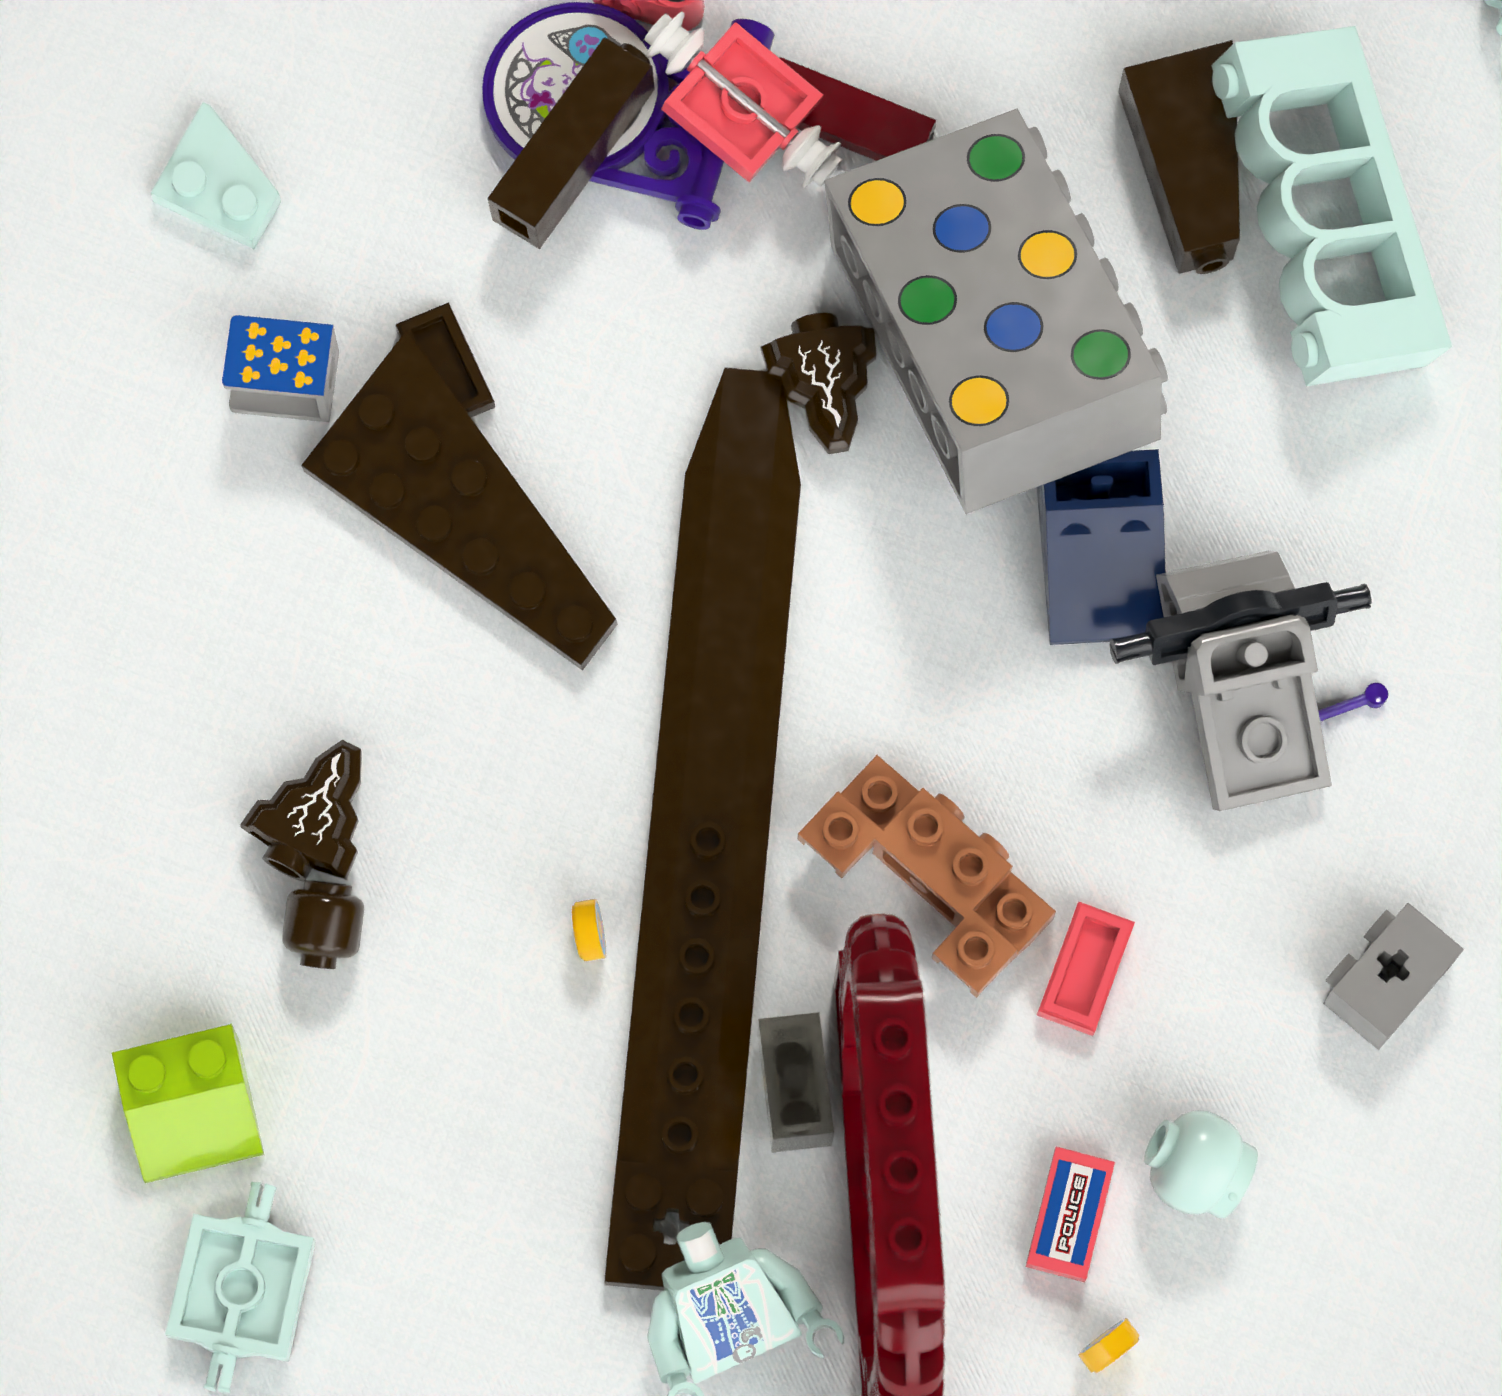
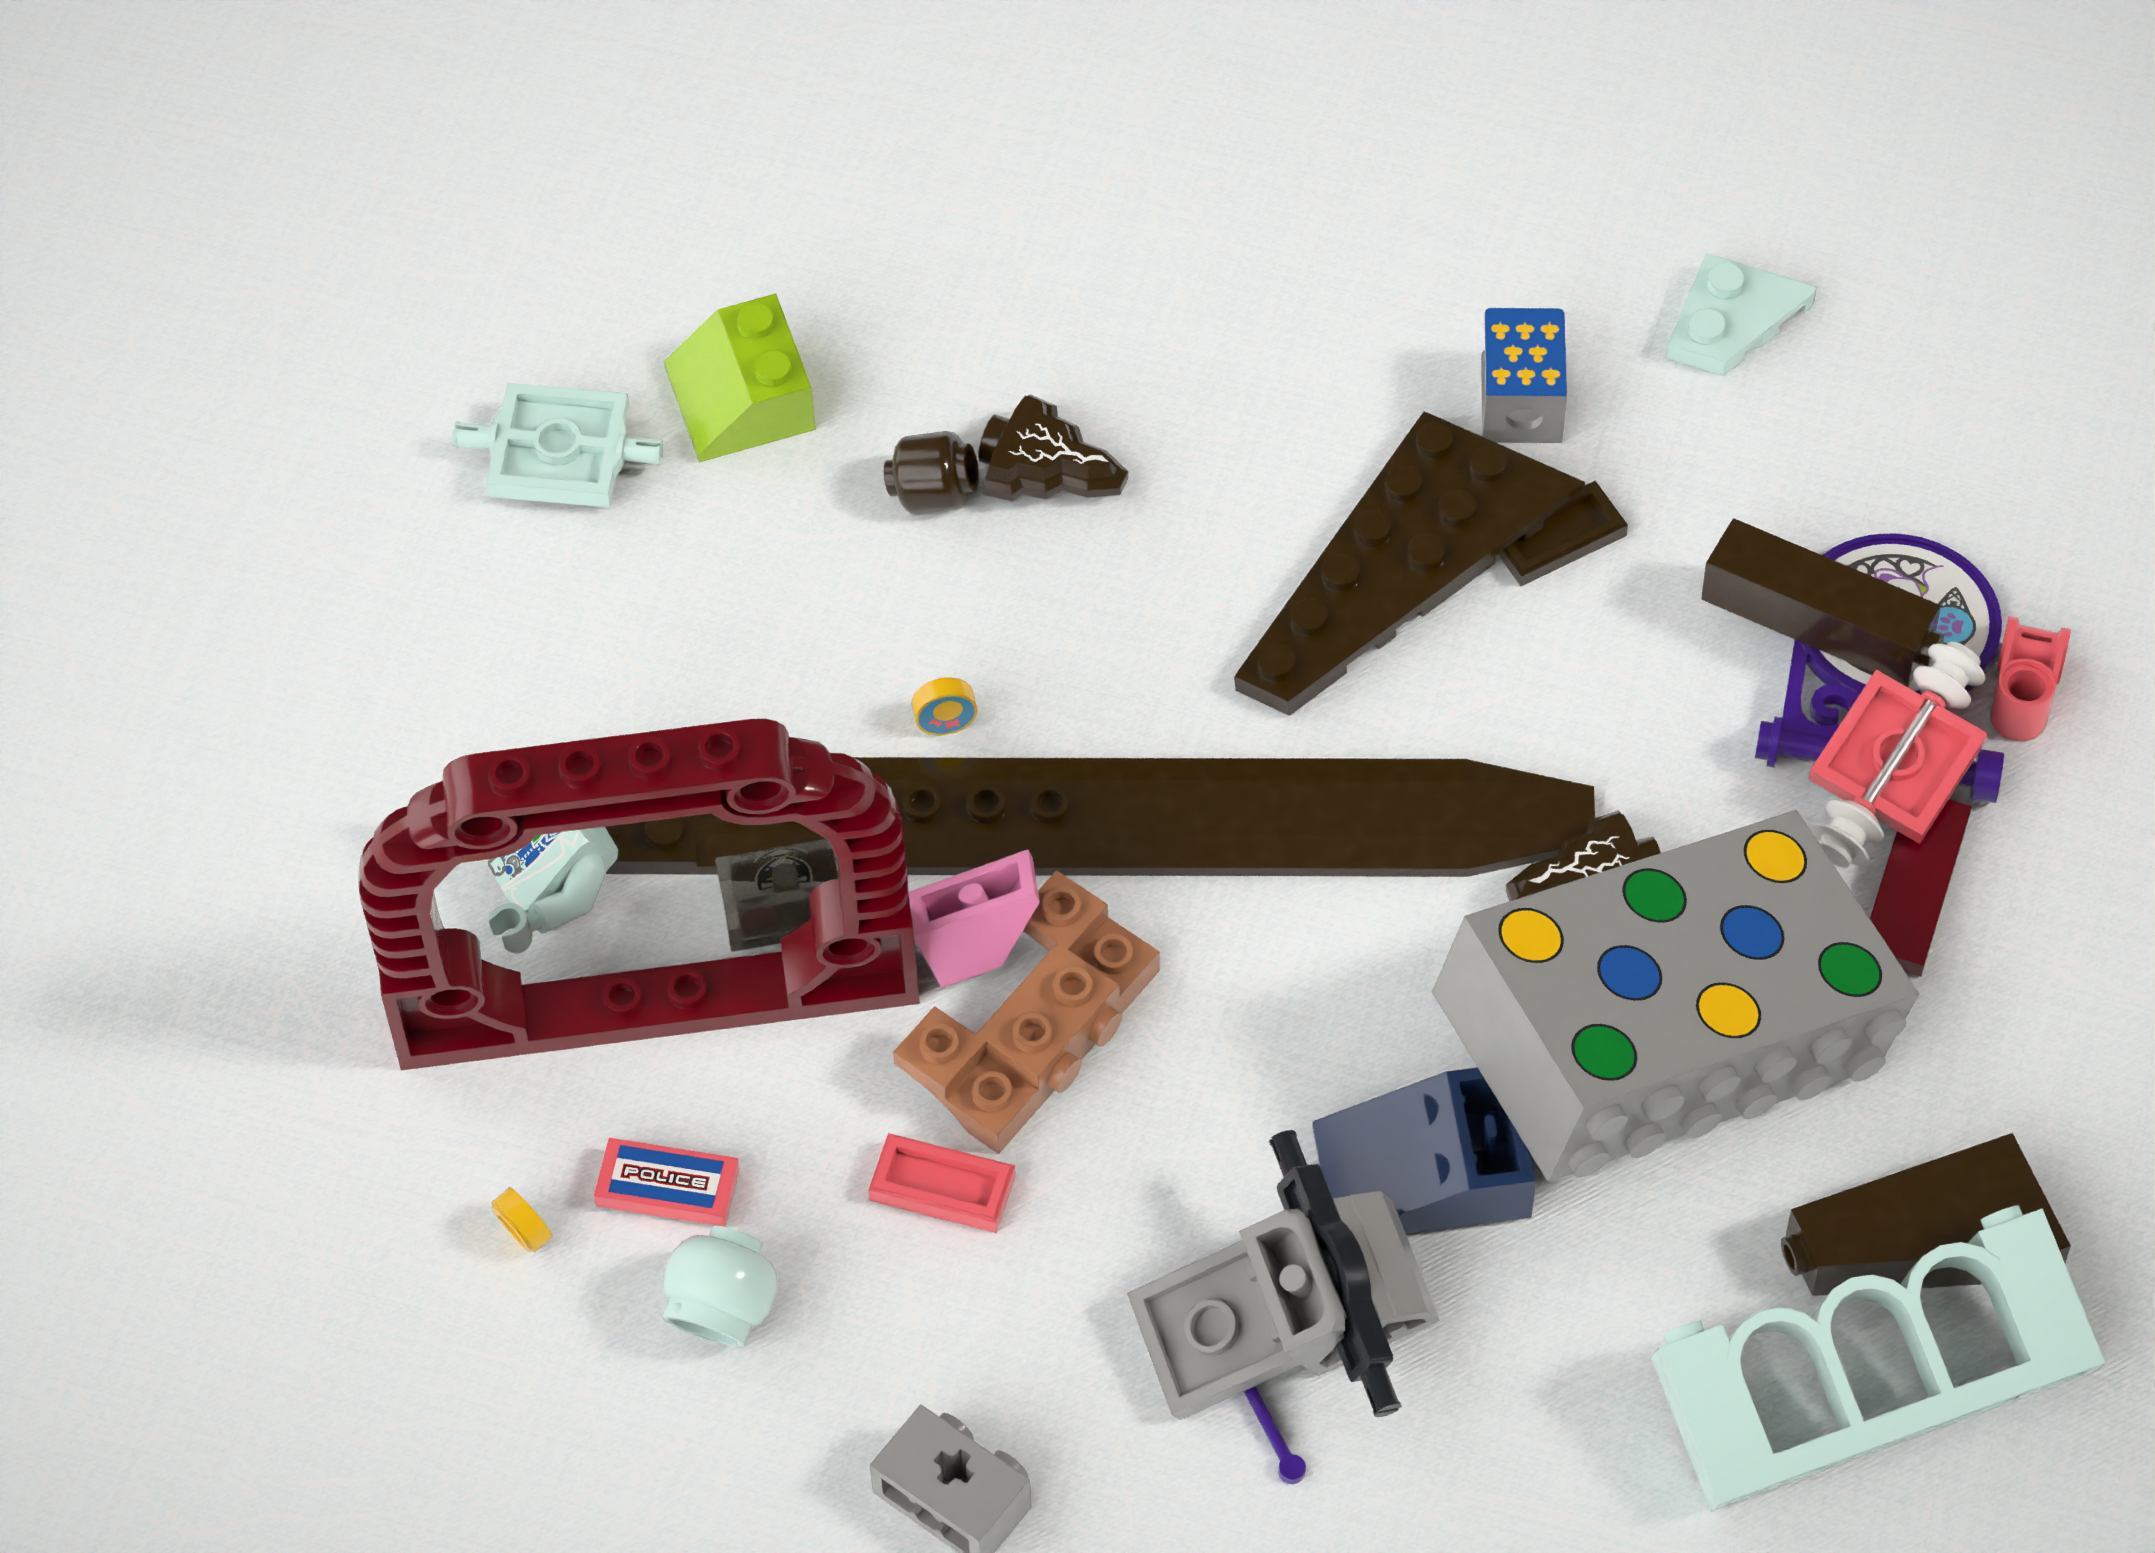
camera: 90 degrees right, 15 degrees down
(836, 894) = (974, 917): none -> bright pink slope

